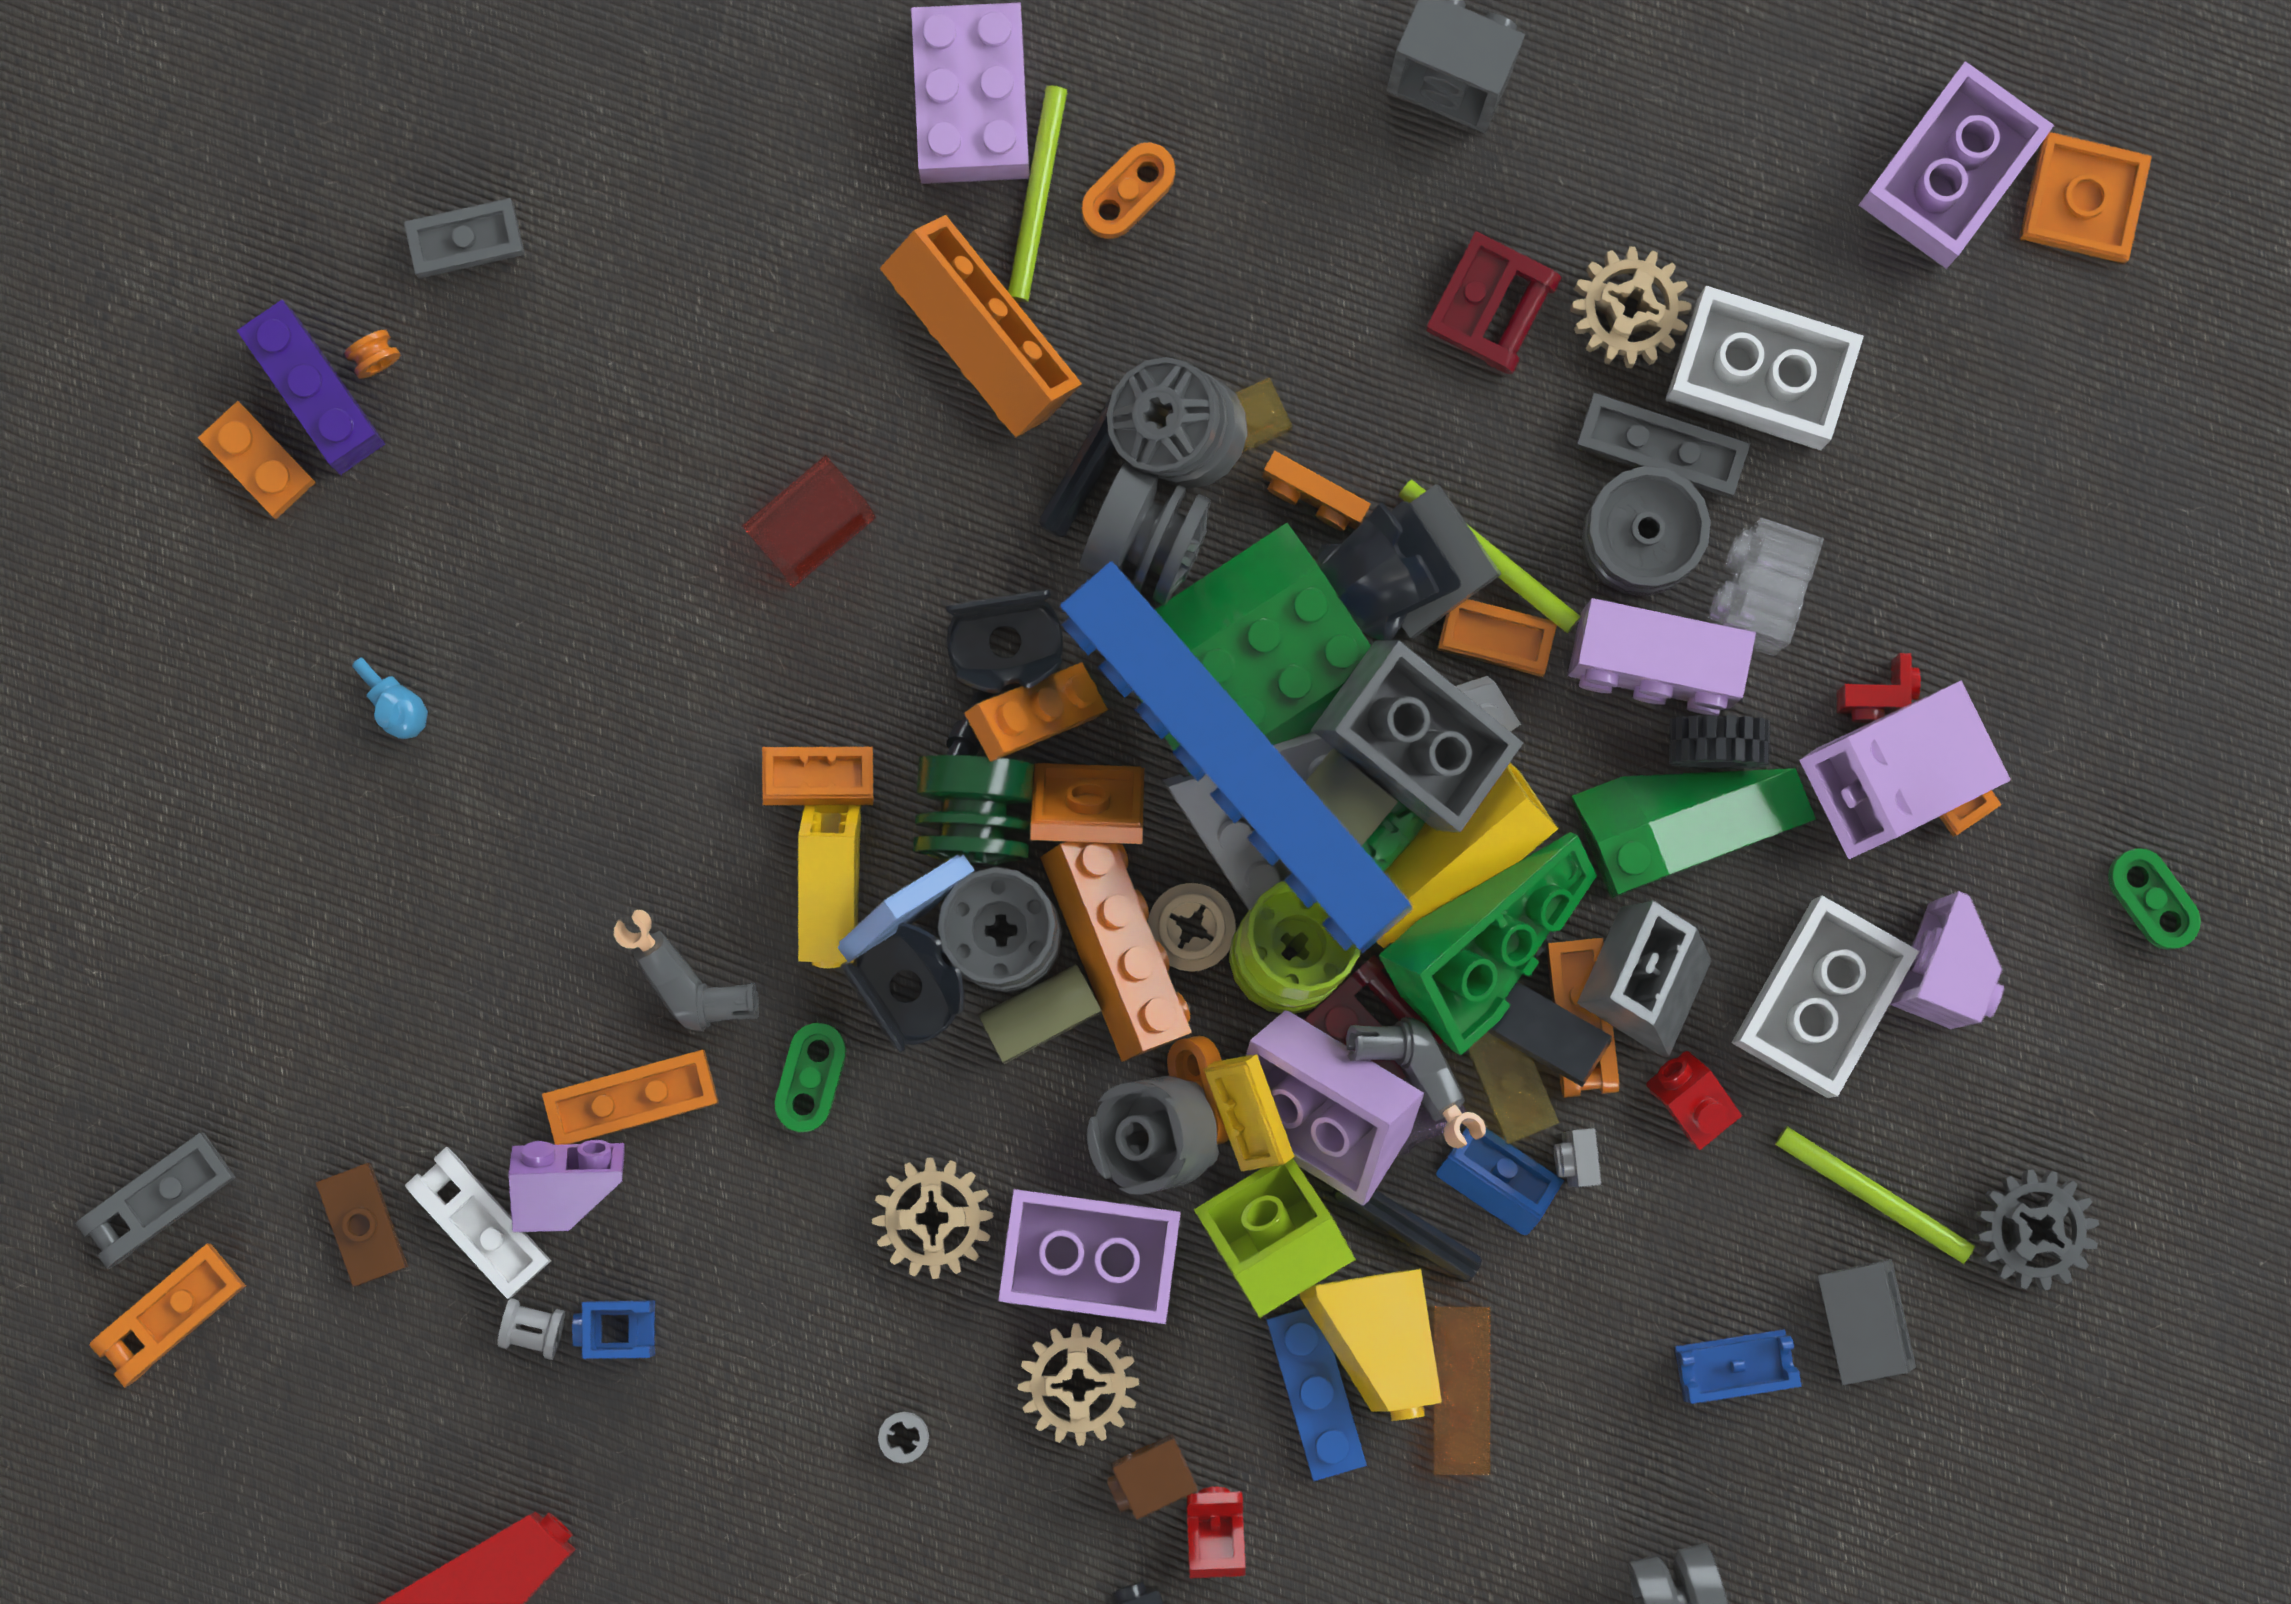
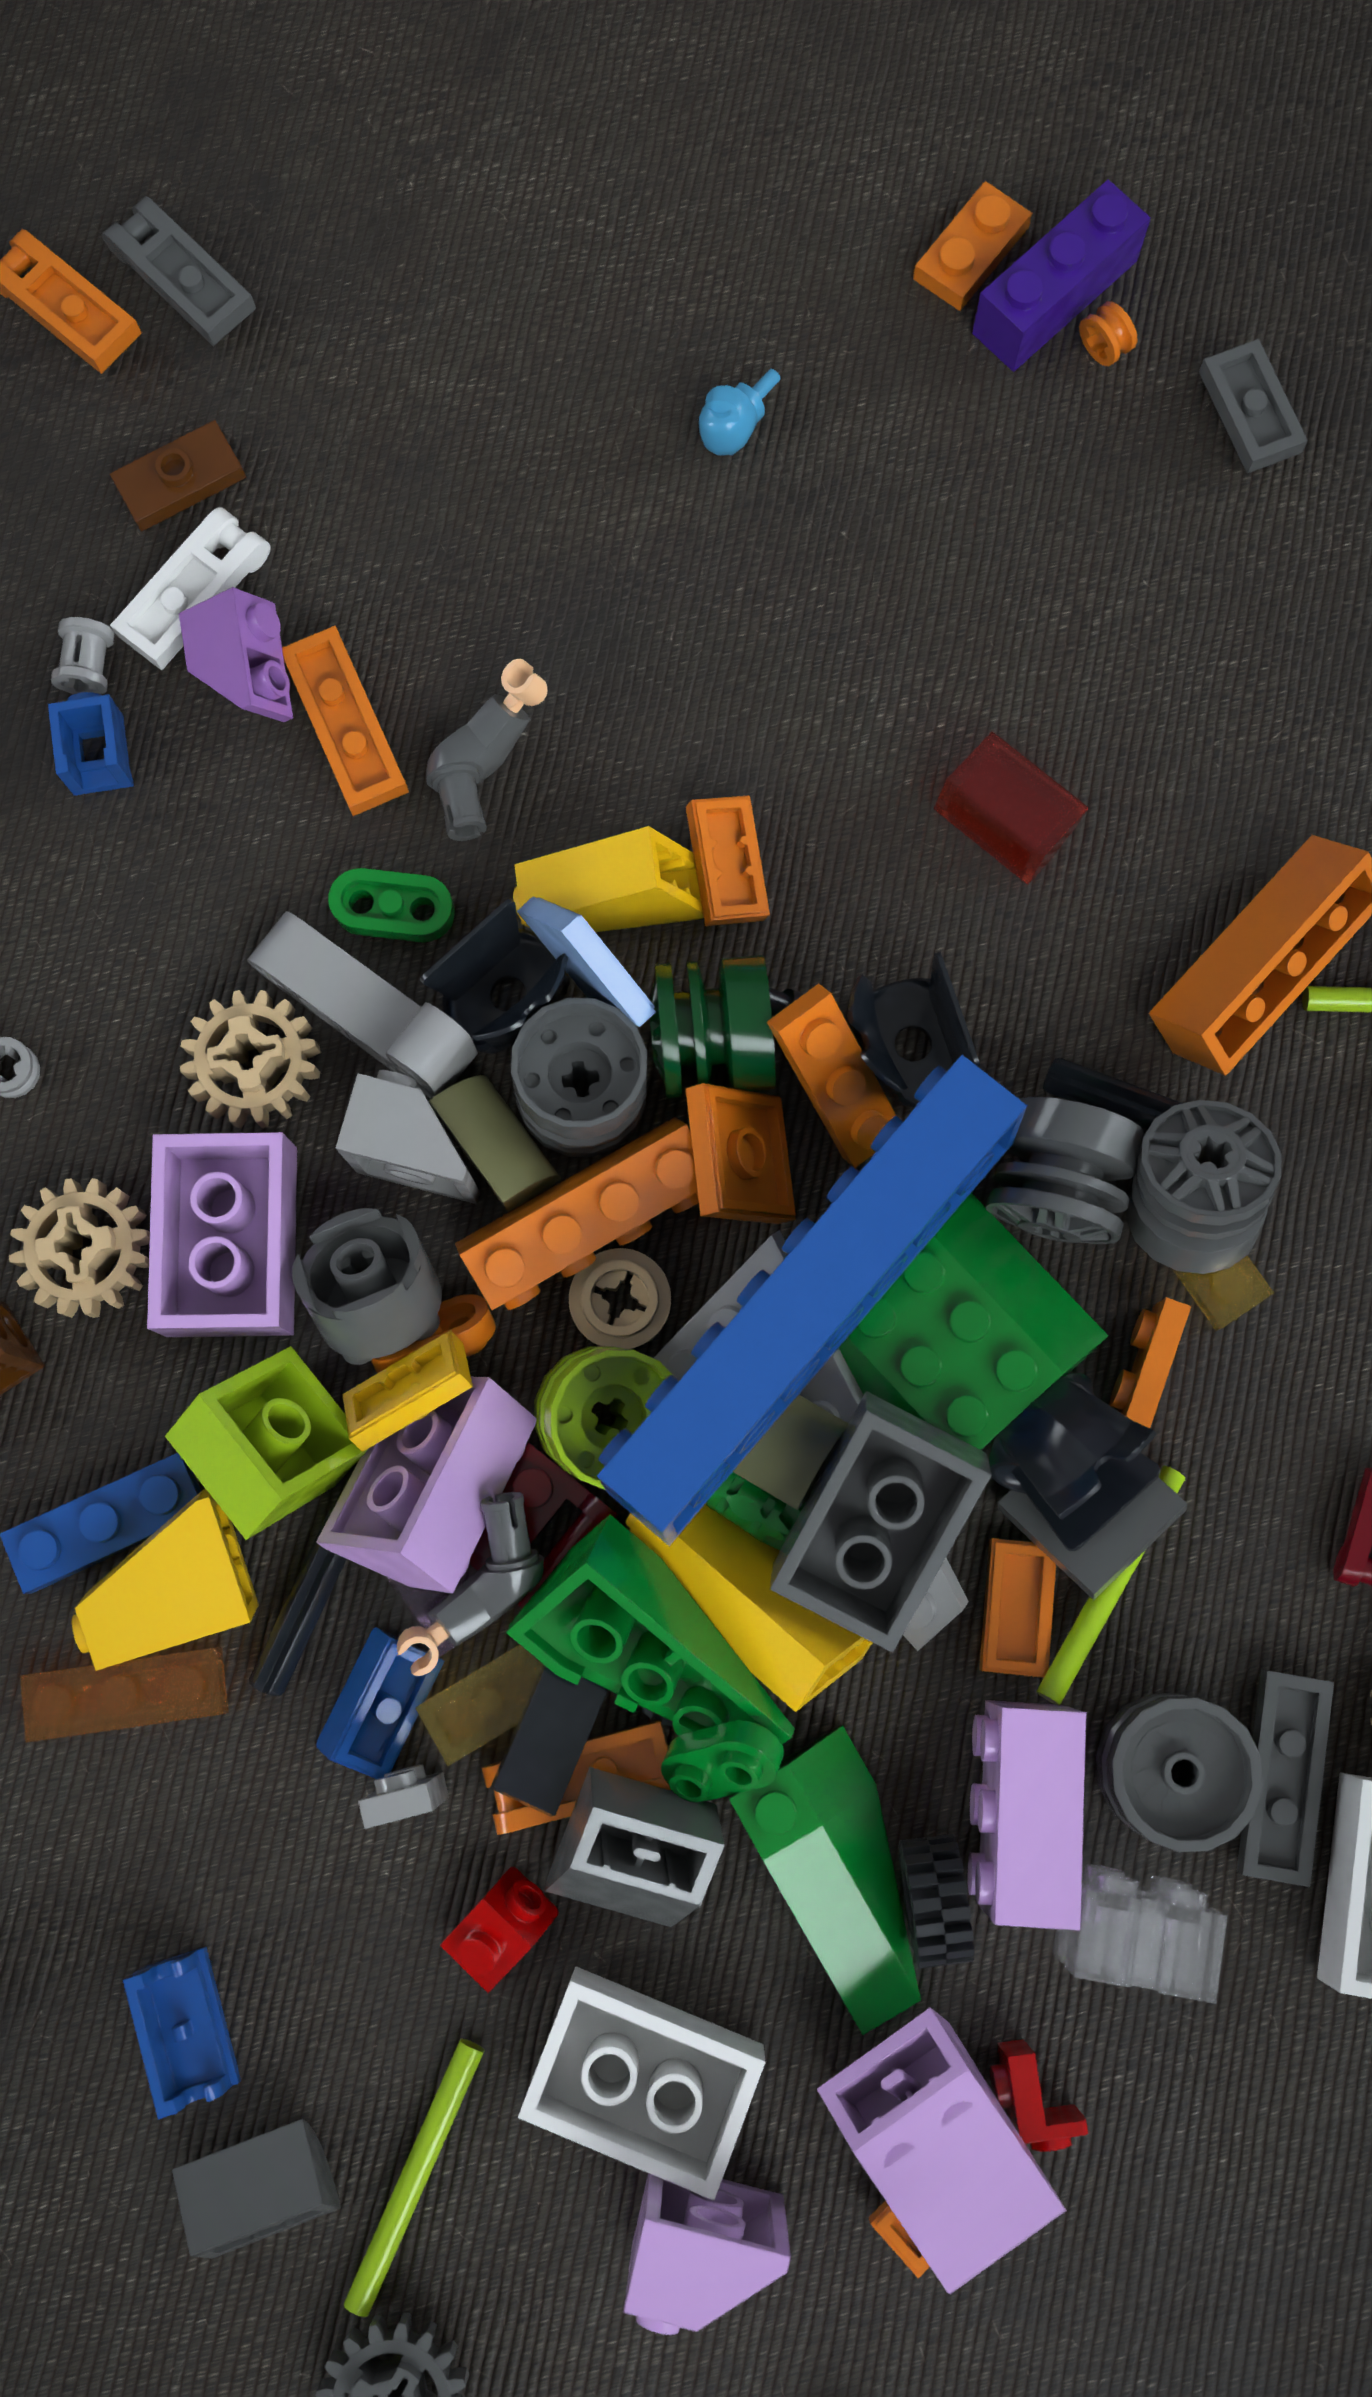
camera: 90 degrees right, 5 degrees down
(900, 1114) = (364, 1006): none -> light grey beam
(1031, 1086) = (399, 1138): none -> light grey slope
(1587, 895) = (722, 1761): none -> green plate

